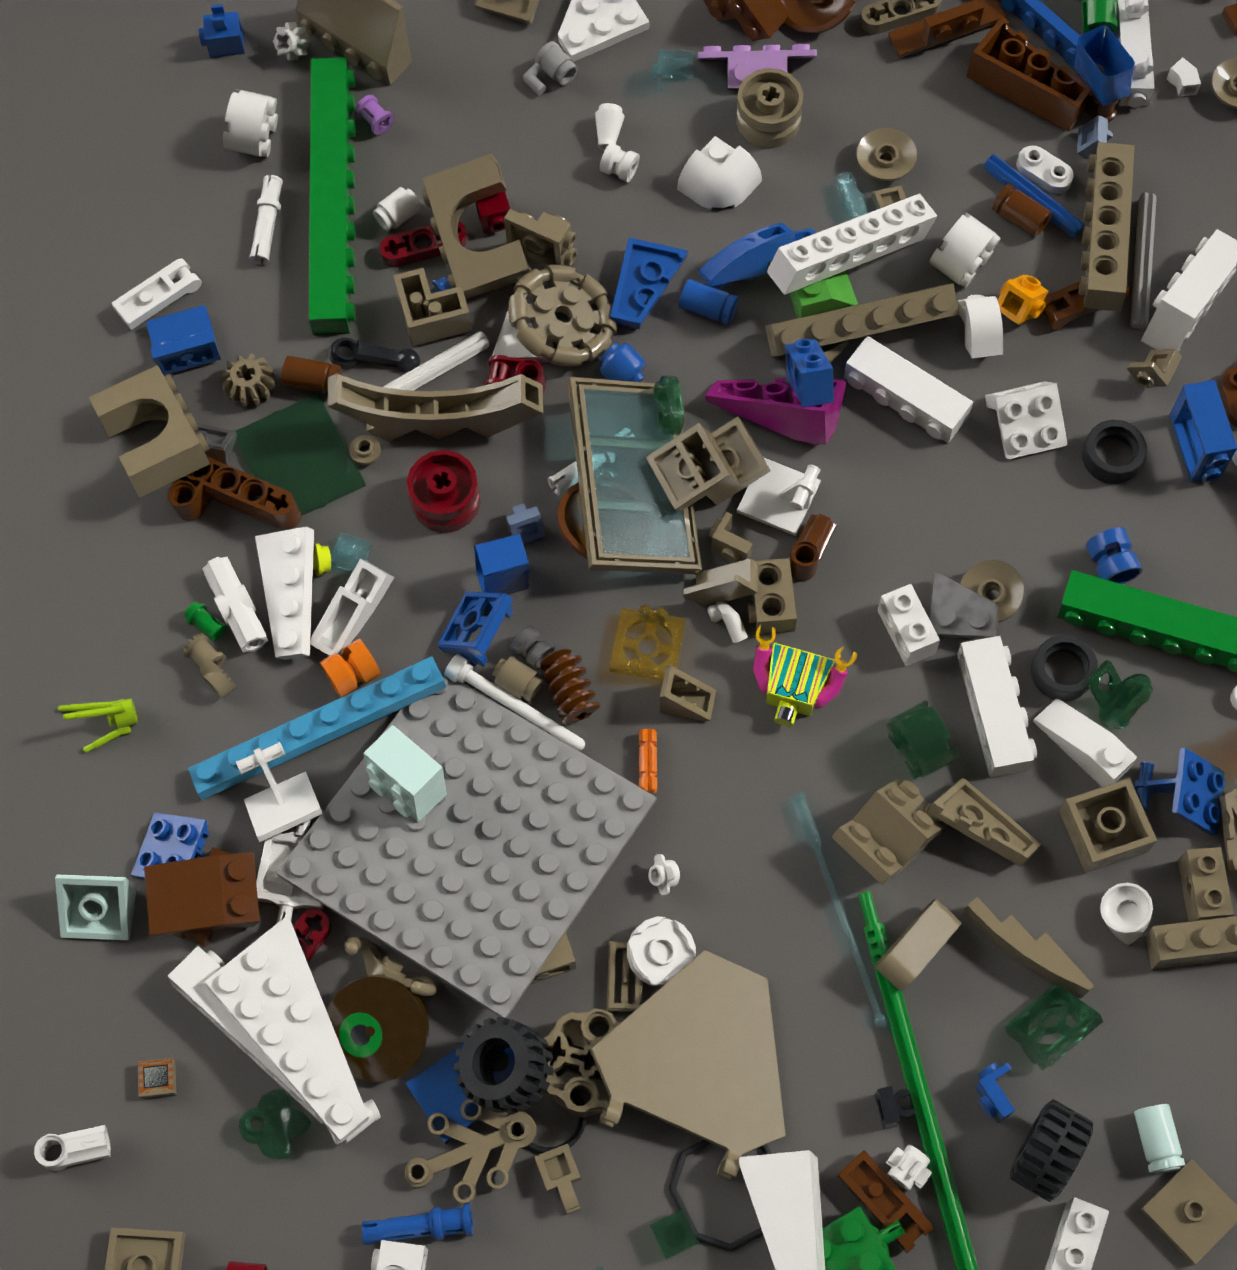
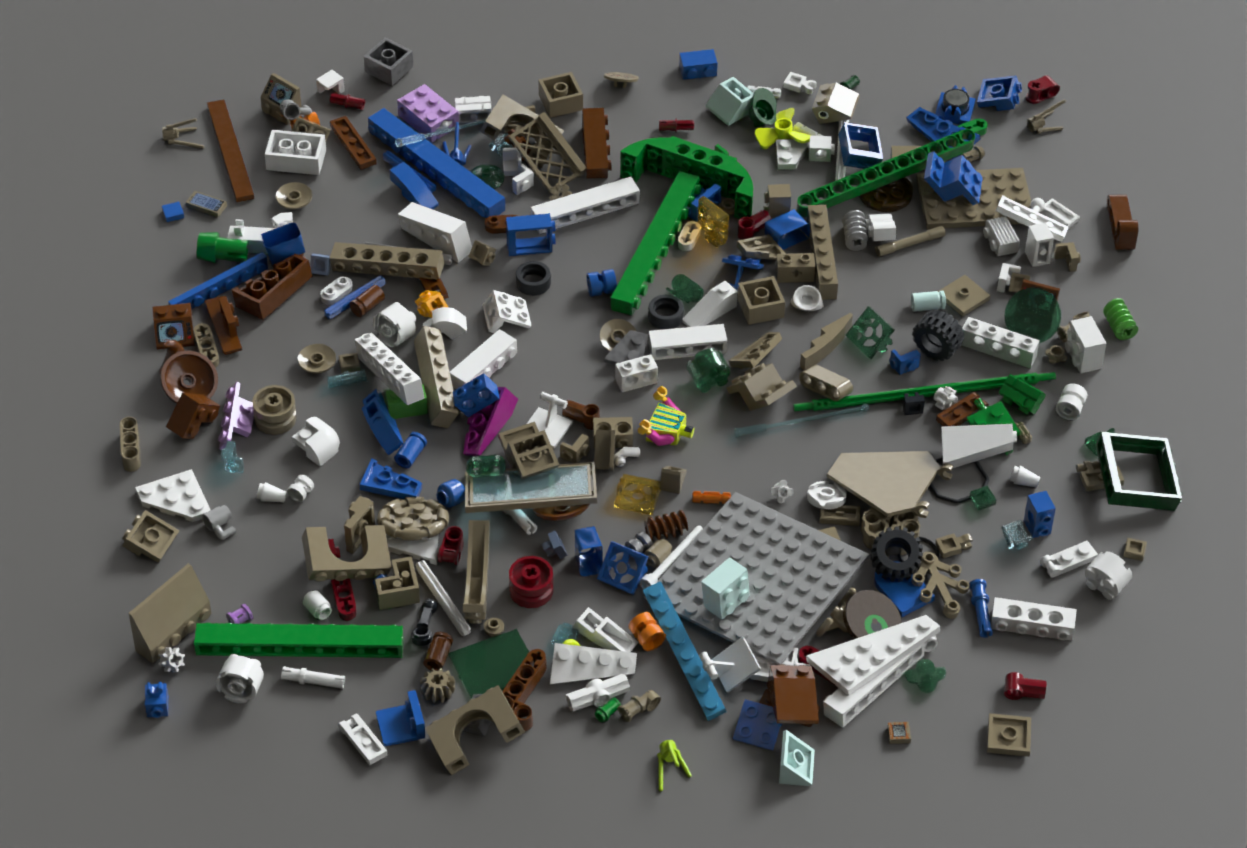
camera: 90 degrees left, 20 degrees down
(76, 1146) = (942, 769): white piece -> none

